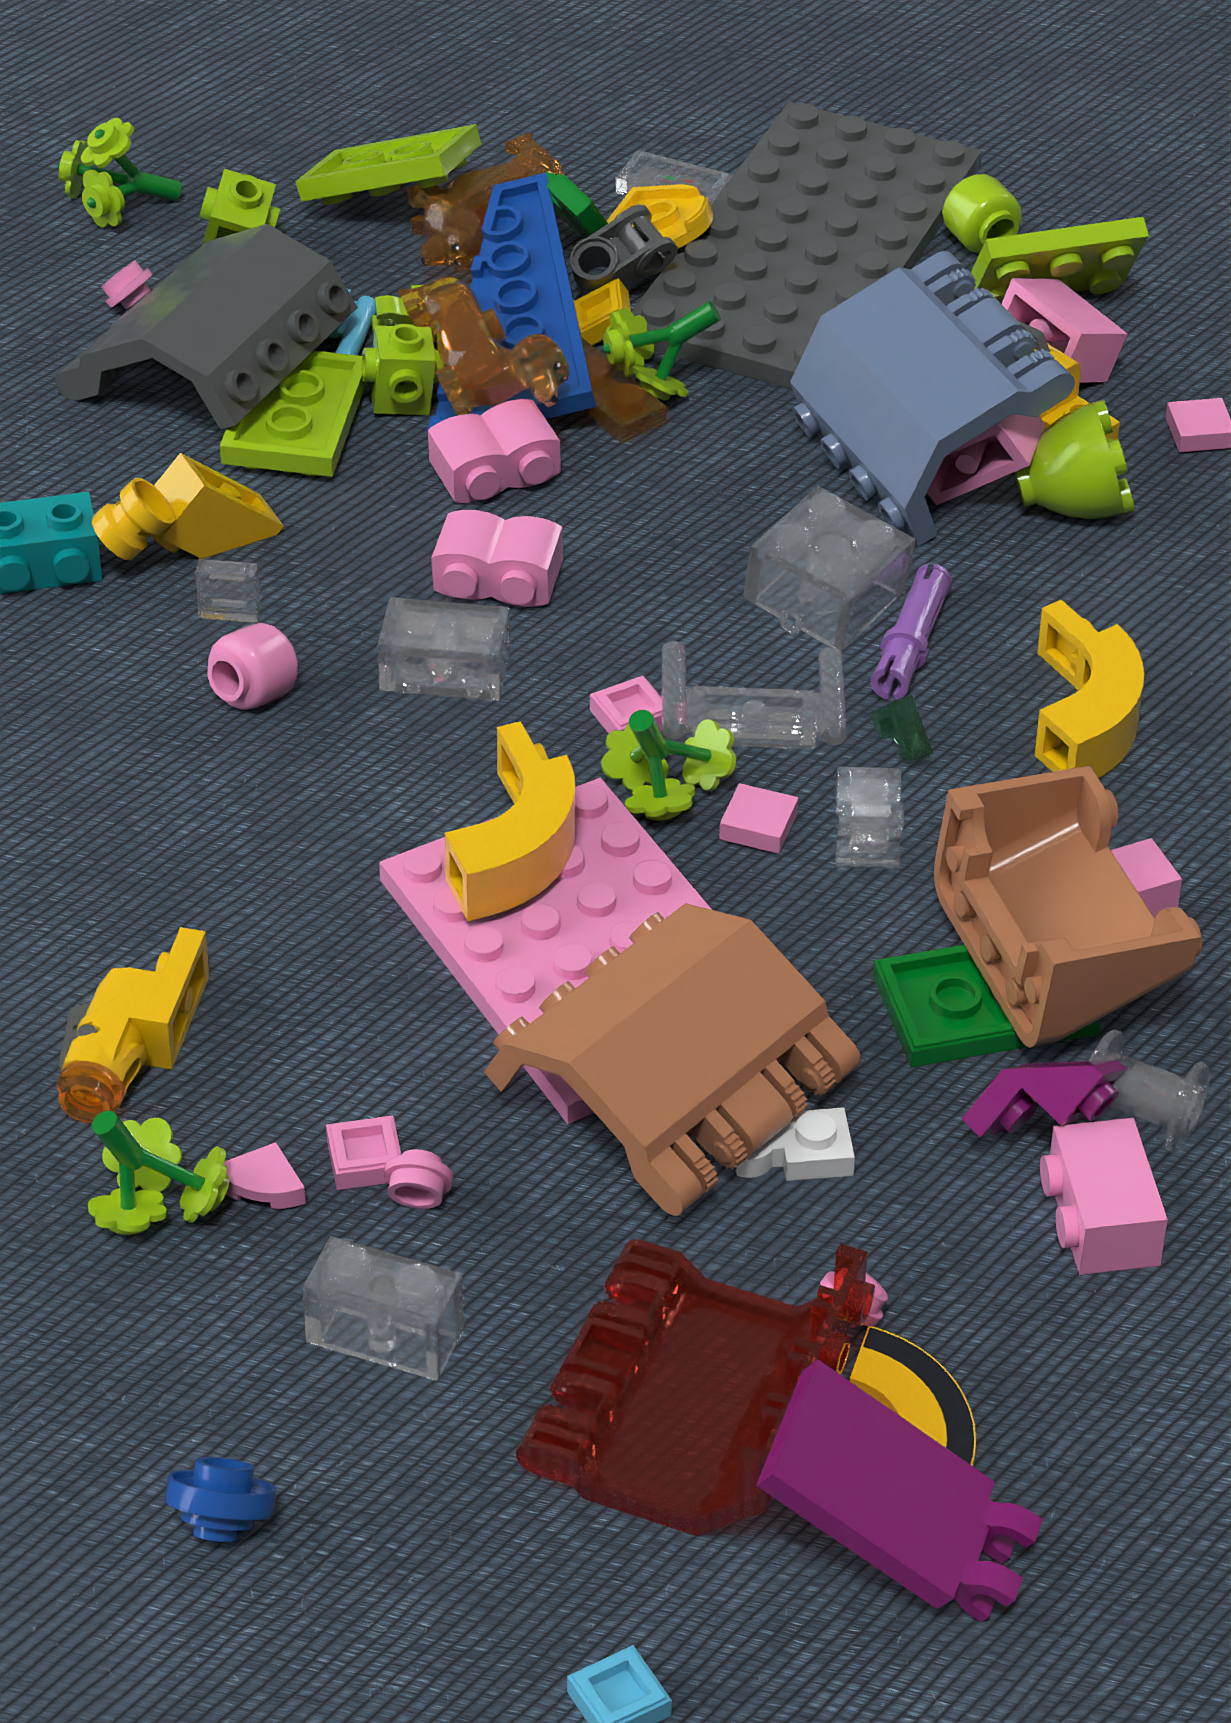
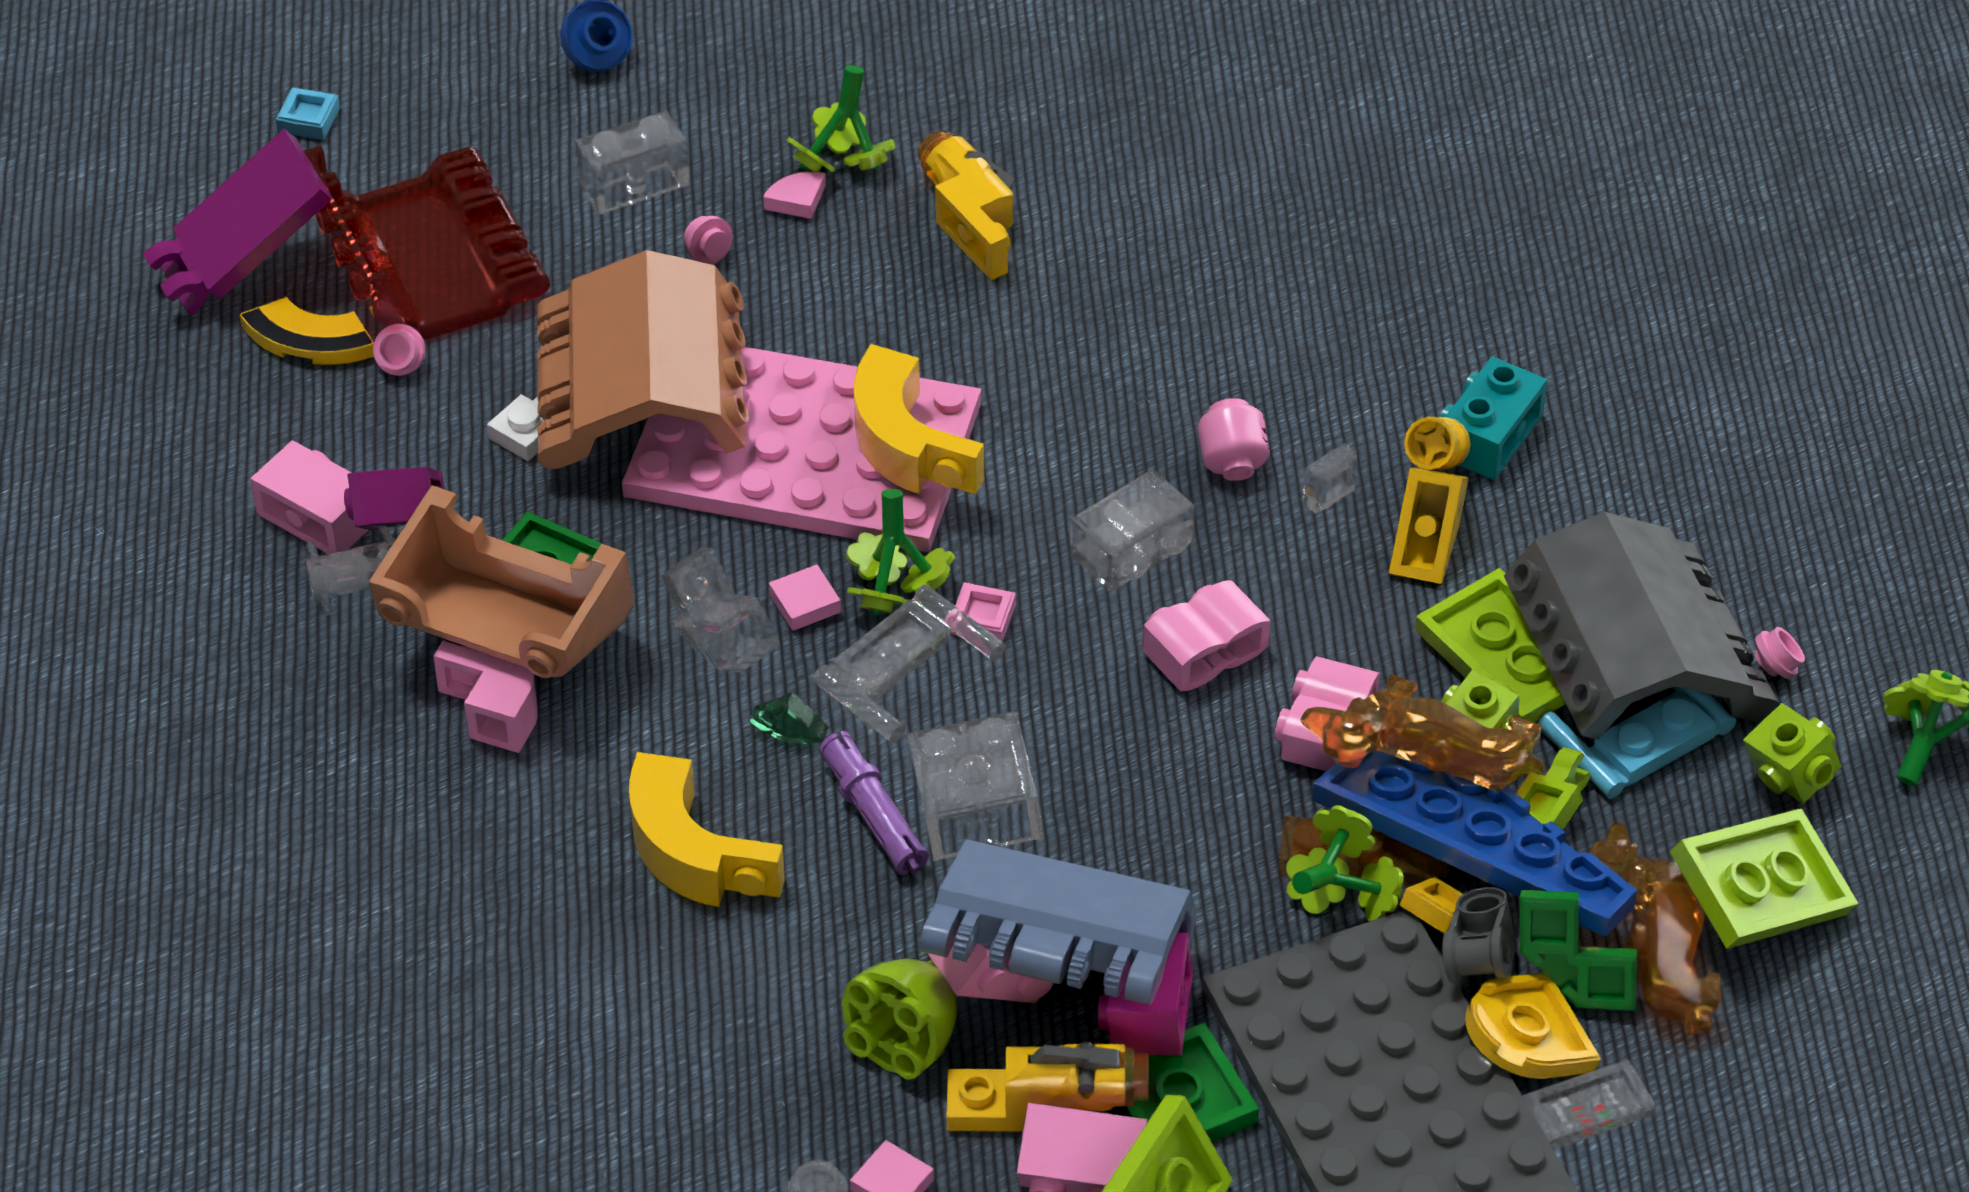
camera: 135 degrees right, 5 degrees up
(361, 1150) = (764, 247): bright pink tile -> none

